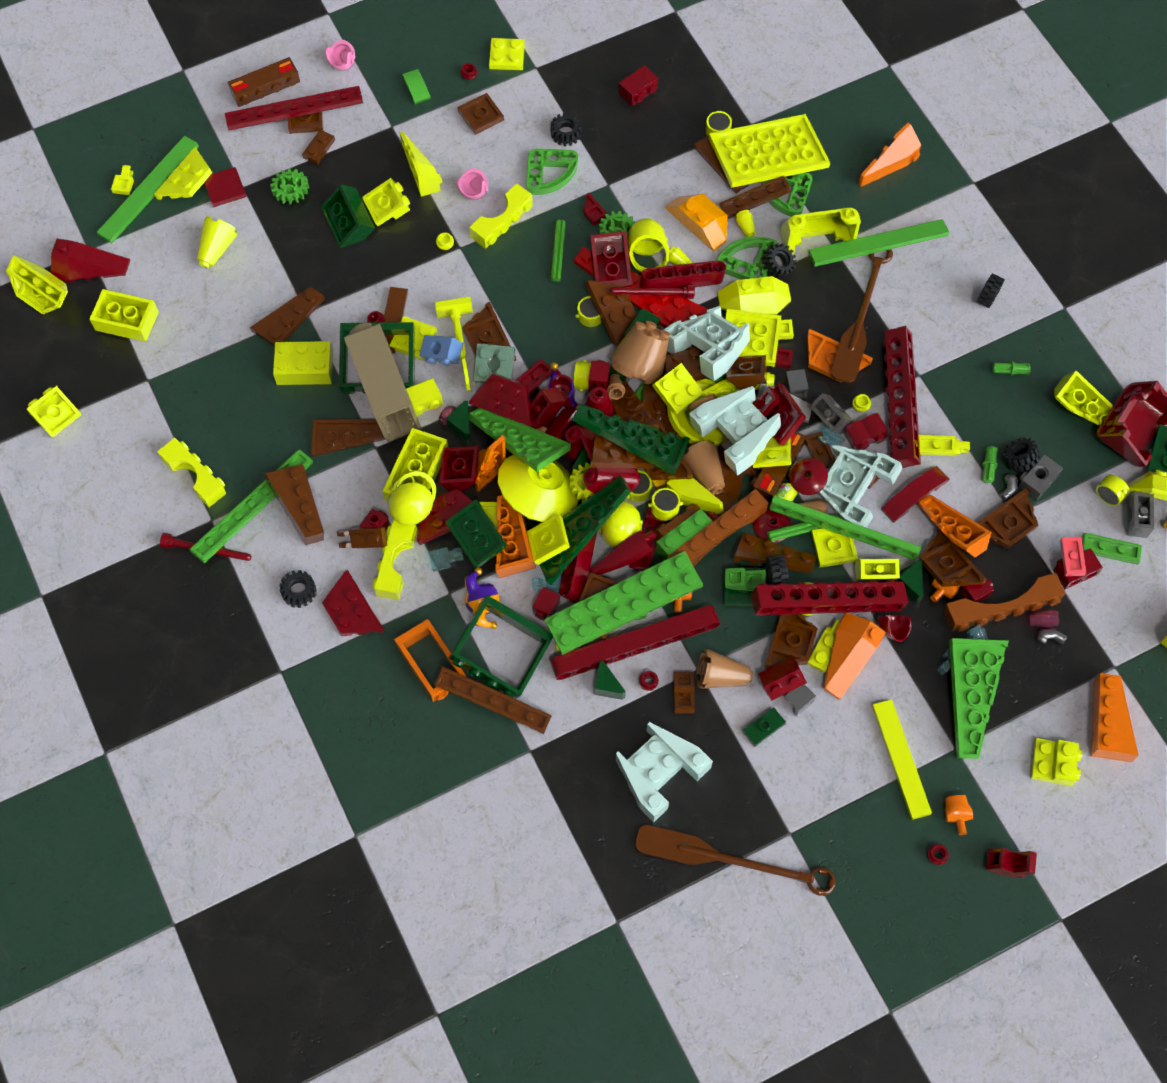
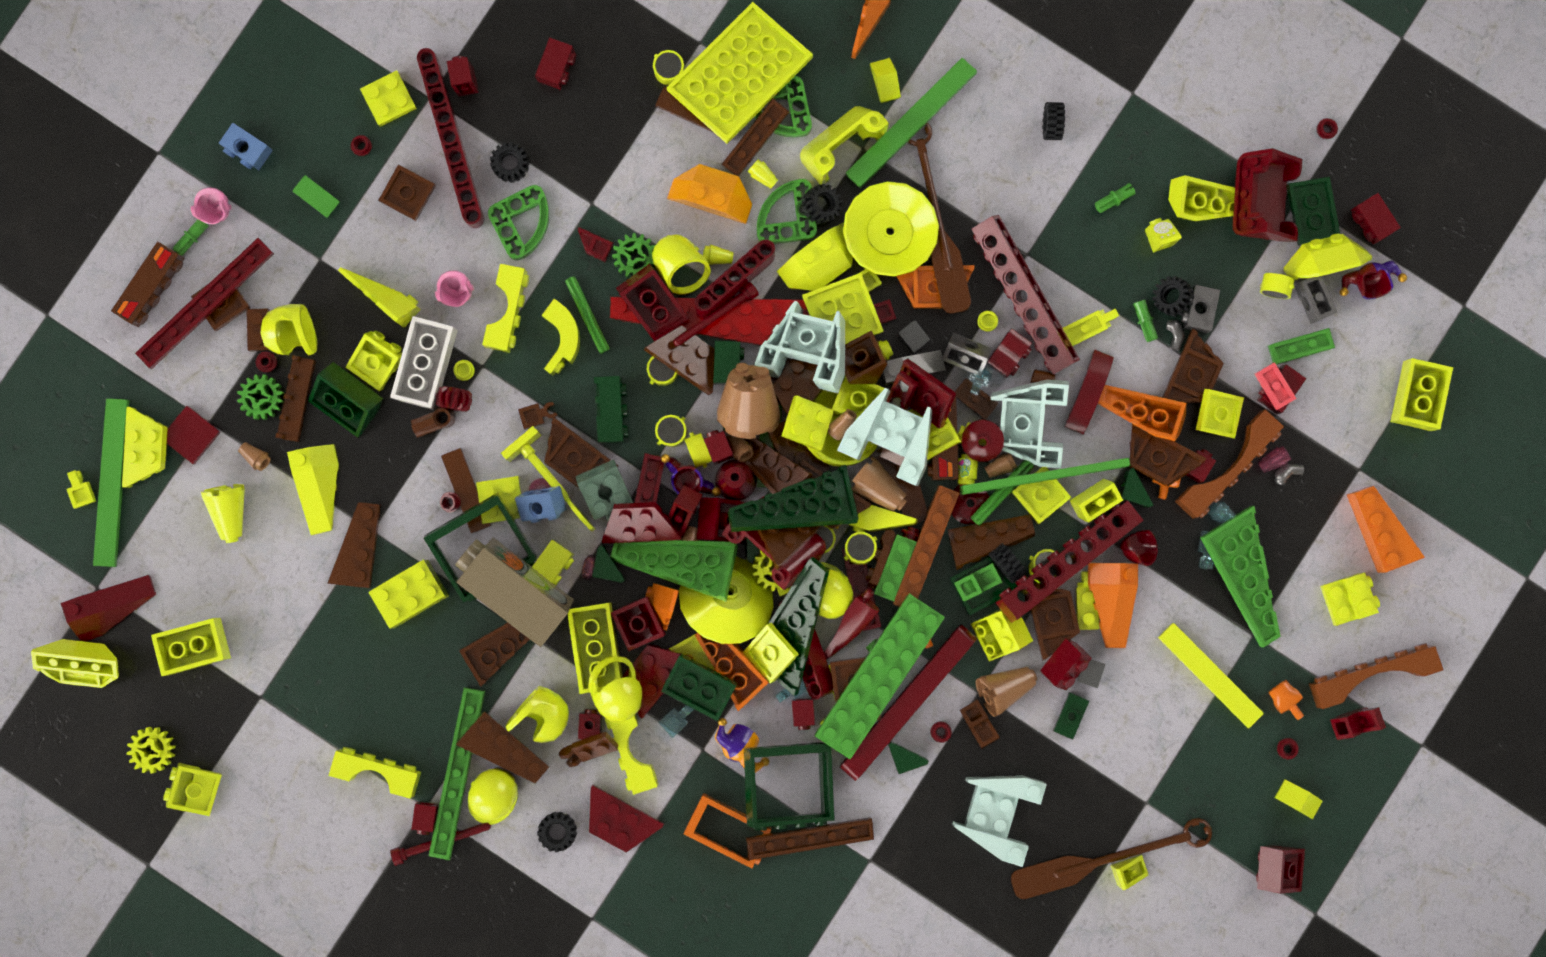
camera: 30 degrees left, 20 degrees up
(52, 366) = (154, 742): none -> neon yellow gear
(205, 521) = (424, 817): none -> dark red brick
(258, 221) = (255, 457): none -> medium nougat cone
(268, 529) = (492, 796): none -> neon yellow piece
(290, 255) = (315, 480): none -> neon yellow wedge
(309, 172) = (271, 365): none -> dark red plate
(312, 201) = (296, 398): none -> reddish brown hinge
(314, 69) = (190, 237): none -> bright green axle
(340, 151) = (288, 328): none -> neon yellow piece
(348, 494) = (547, 710): none -> neon yellow piece
(389, 34) = (236, 138): none -> medium blue brick
(400, 262) = (431, 422): none -> reddish brown piece
(419, 219) = (423, 362): none -> white brick
(425, 252) = (454, 399): none -> dark red gear
(478, 294) = (534, 416): none -> reddish brown plate
(533, 96) = (446, 129): none -> dark red beam
(534, 258) = (569, 336): none -> neon yellow arch
(535, 316) = (611, 409): none -> dark green wedge
(567, 59) = (462, 76): none -> dark red brick
(568, 353) = (671, 431): none -> pearl dark grey piece
(743, 630) = (1001, 636): none -> neon yellow slope
(744, 878) = (1129, 871): none -> neon yellow slope
(825, 287) = (895, 208): none -> neon yellow dish
(875, 210) = (886, 80): none -> neon yellow slope
(879, 950) = (1280, 869): none -> dark red slope
(927, 903) = (1298, 799): none -> neon yellow slope
(1015, 559) = (1219, 413): none -> neon yellow plate
(1035, 410) = (1162, 234): none -> neon yellow slope
(1091, 844) = (1335, 689): none -> dark orange arch

